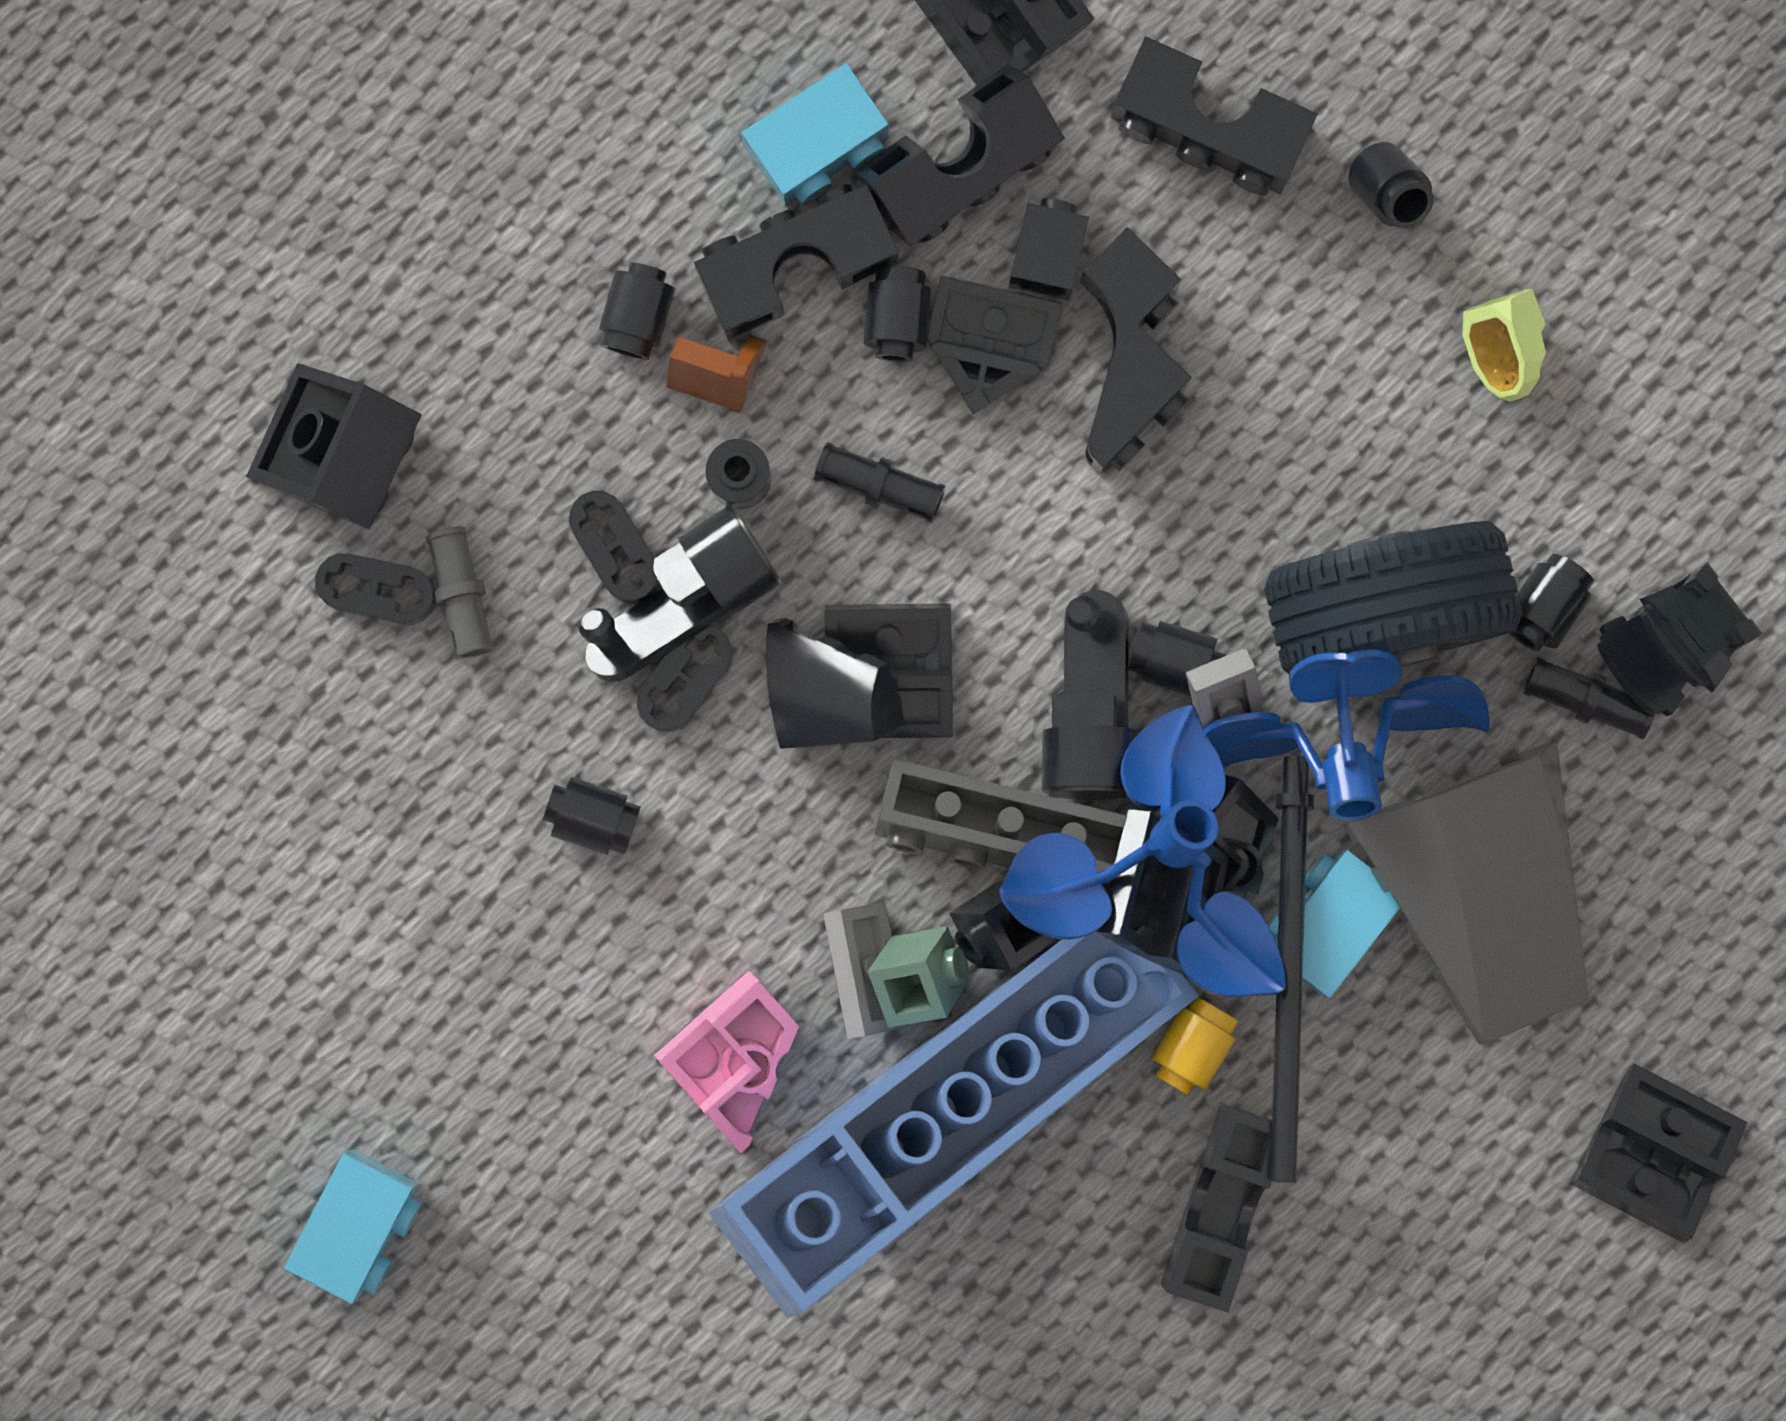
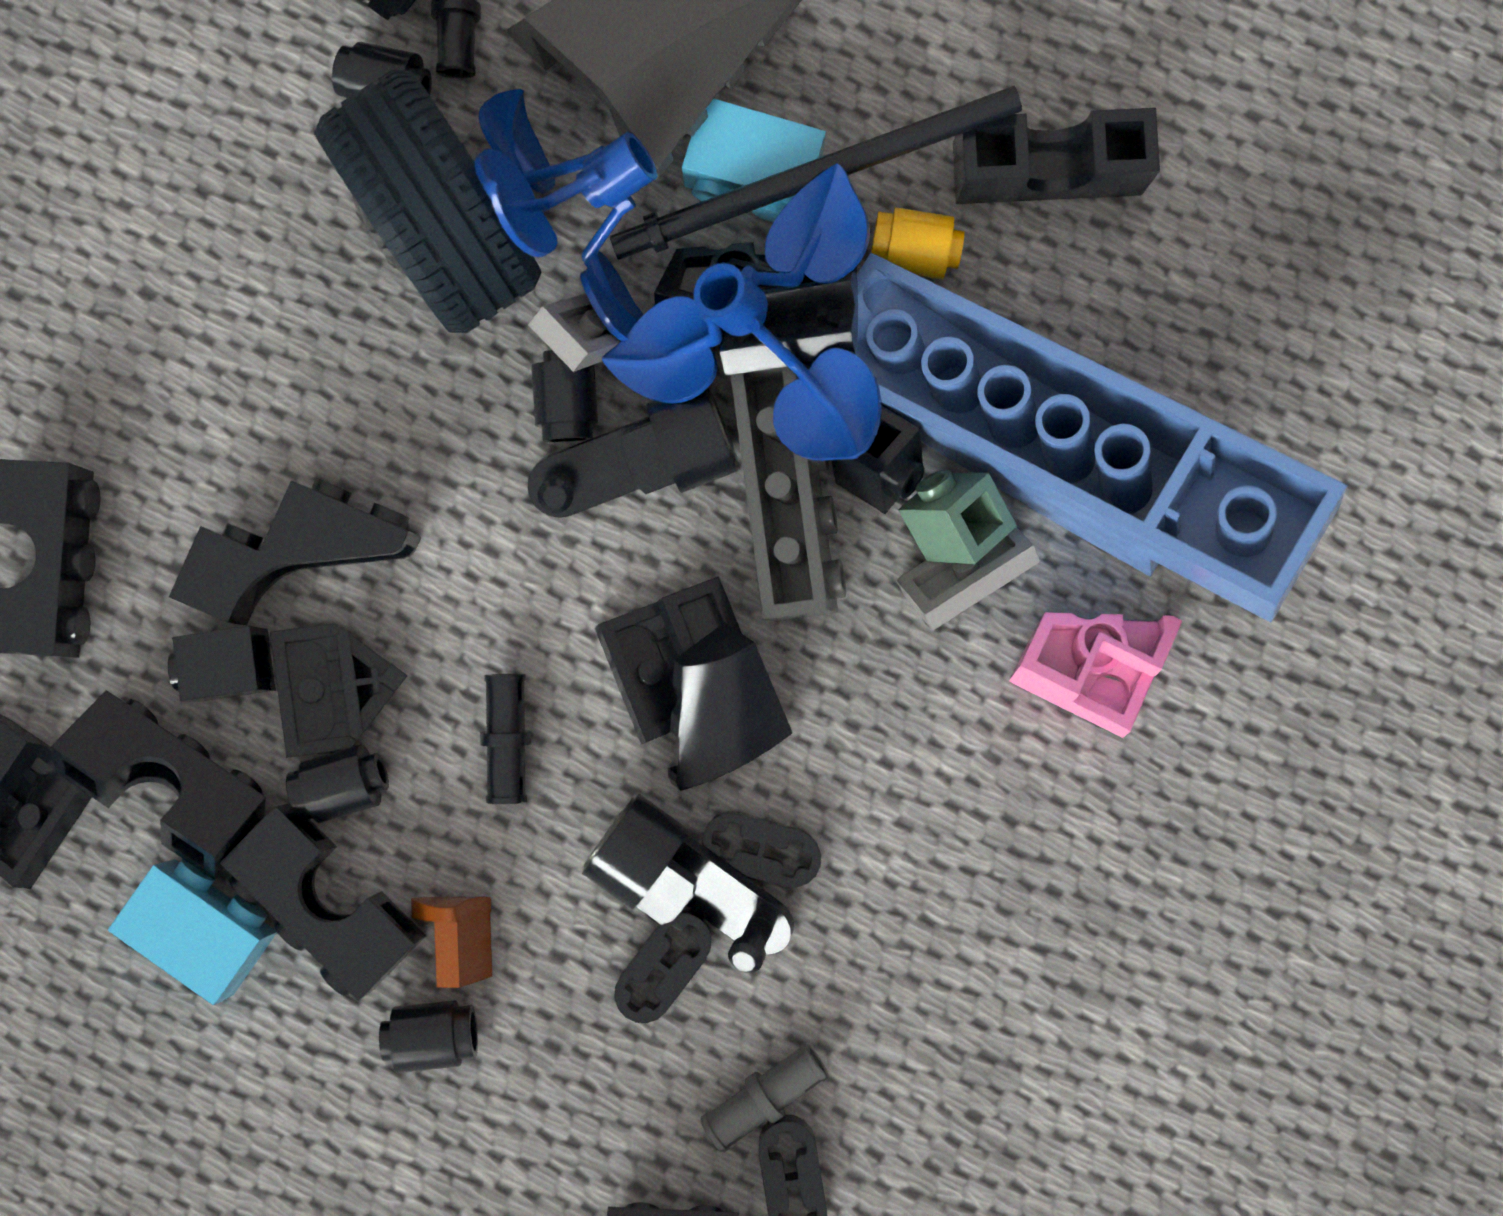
camera: 105 degrees left, 0 degrees up
(353, 1227) = (1402, 957): medium azure brick -> none
(591, 816) = (927, 886): black brick -> none
(743, 493) = (562, 861): black brick -> none
(1391, 185) = (39, 365): black brick -> none
(1506, 343) = (152, 205): yellowish green rock -> none

